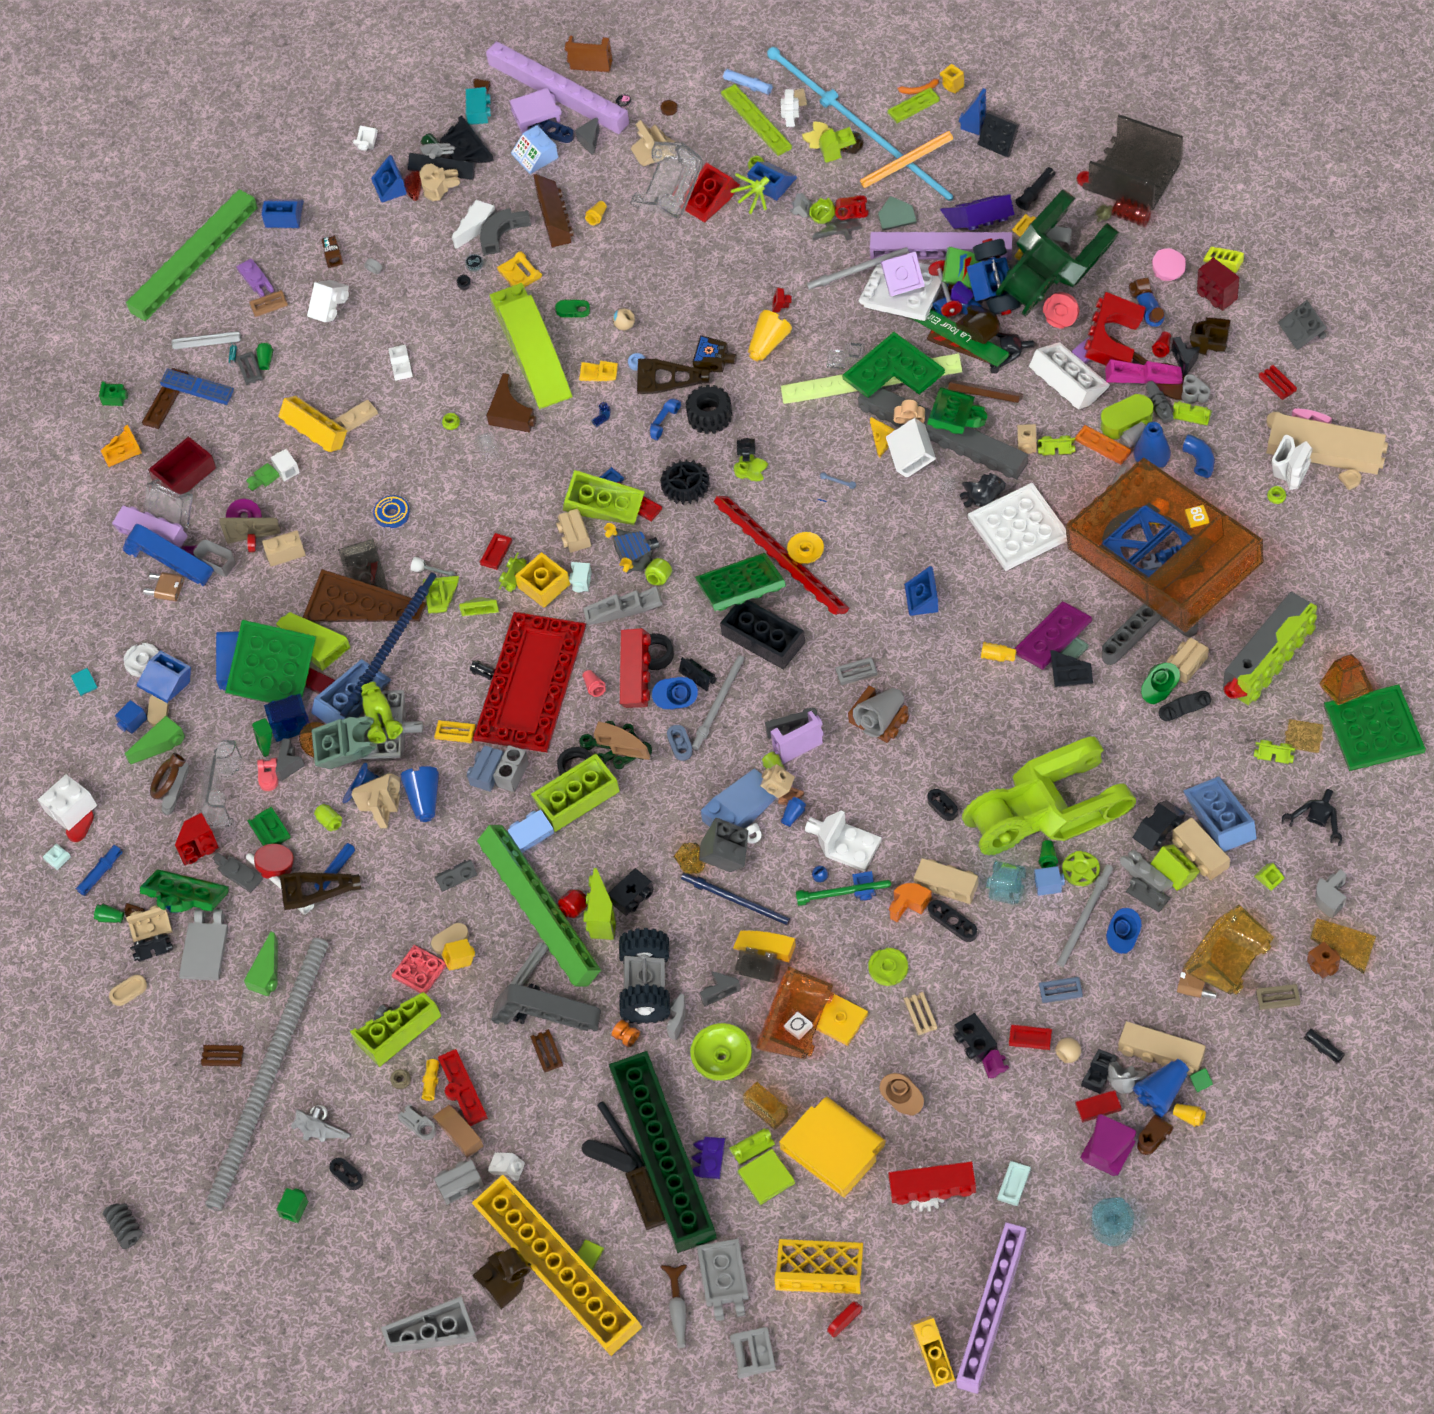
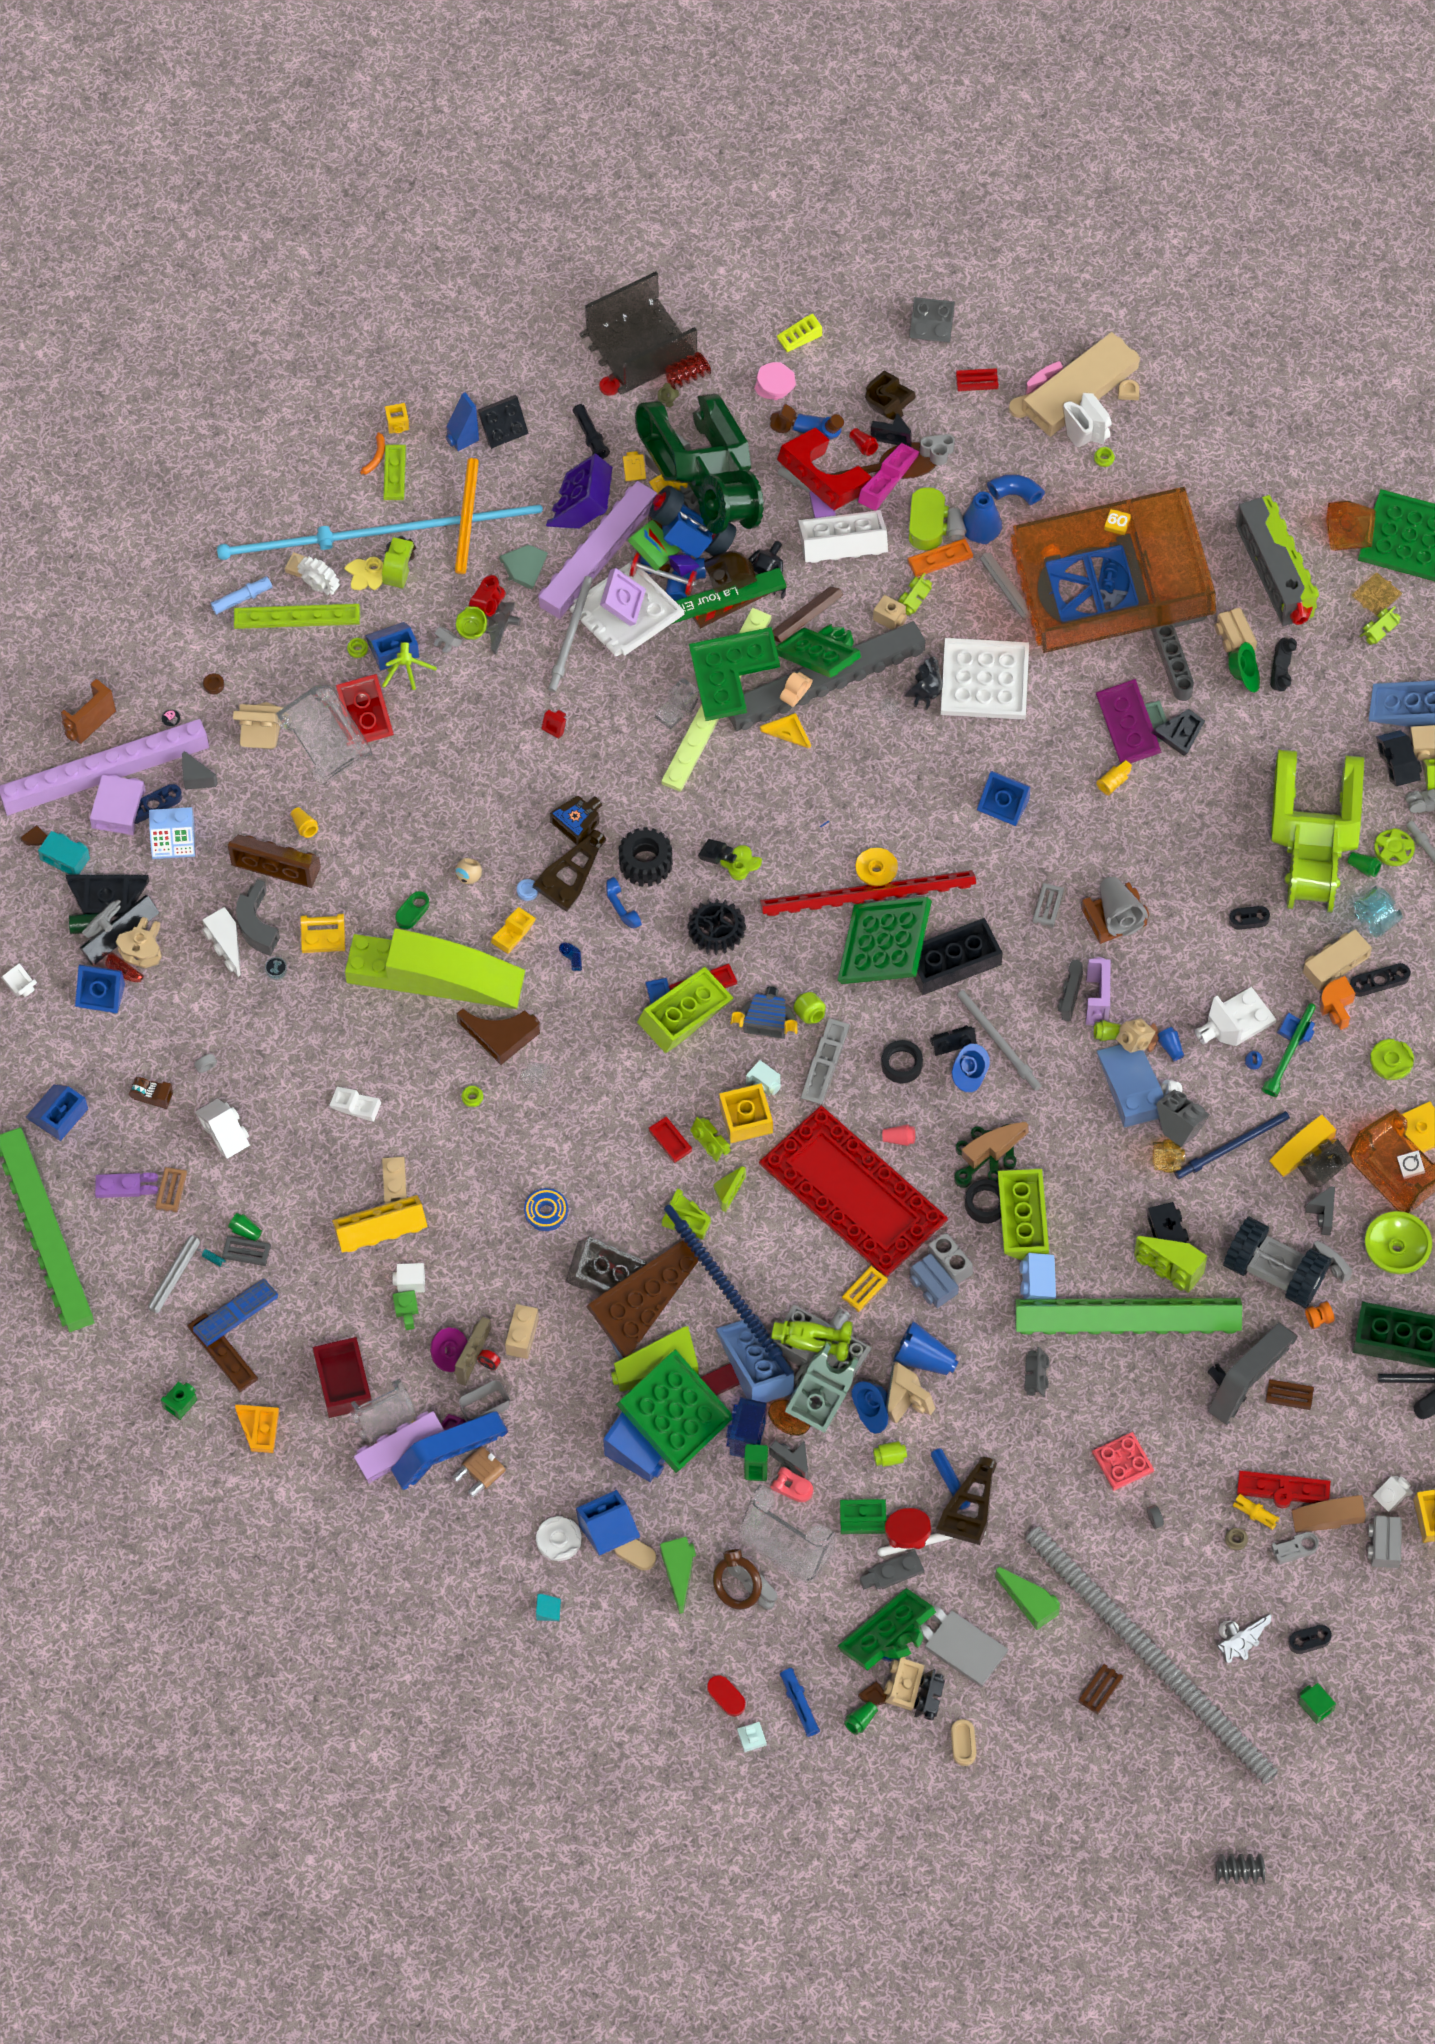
camera: 65 degrees left, 5 degrees up
(67, 802) = (697, 1687): white piece -> none
(130, 717) = (630, 1582): blue brick -> none
(195, 840) = (837, 1586): red slope -> none
(396, 1029) = (1184, 1520): lime wedge -> none
(419, 565) = (636, 1218): hinge -> none
(453, 933) = (1105, 1415): tan tile -> none
(458, 954) = (1135, 1415): yellow brick -> none
(462, 279) = (302, 990): black hinge -> none
(482, 670) = (809, 1226): black pin -> none
(530, 964) = (1187, 1363): light grey axle -> none
(572, 903) = (1144, 1284): red head -> none
(574, 531) = (702, 1056): tan brick -> none
(634, 668) = (919, 1085): brick -> none
(680, 743) = (1024, 1097): sand blue plate -> none
(767, 334) = (594, 756): yellow cone -> none
(852, 485) = (826, 789): sand blue hinge -> none
(910, 447) = (830, 711): white brick -> none
(1048, 880) = (1394, 878): medium blue brick -> none
(1061, 310) = (772, 494): coral tile -> none
(1160, 404) = (918, 481): dark grey hinge -> none
(1190, 413) = (961, 466): lime hinge -> none
(1217, 284) = (836, 354): dark red brick -> none

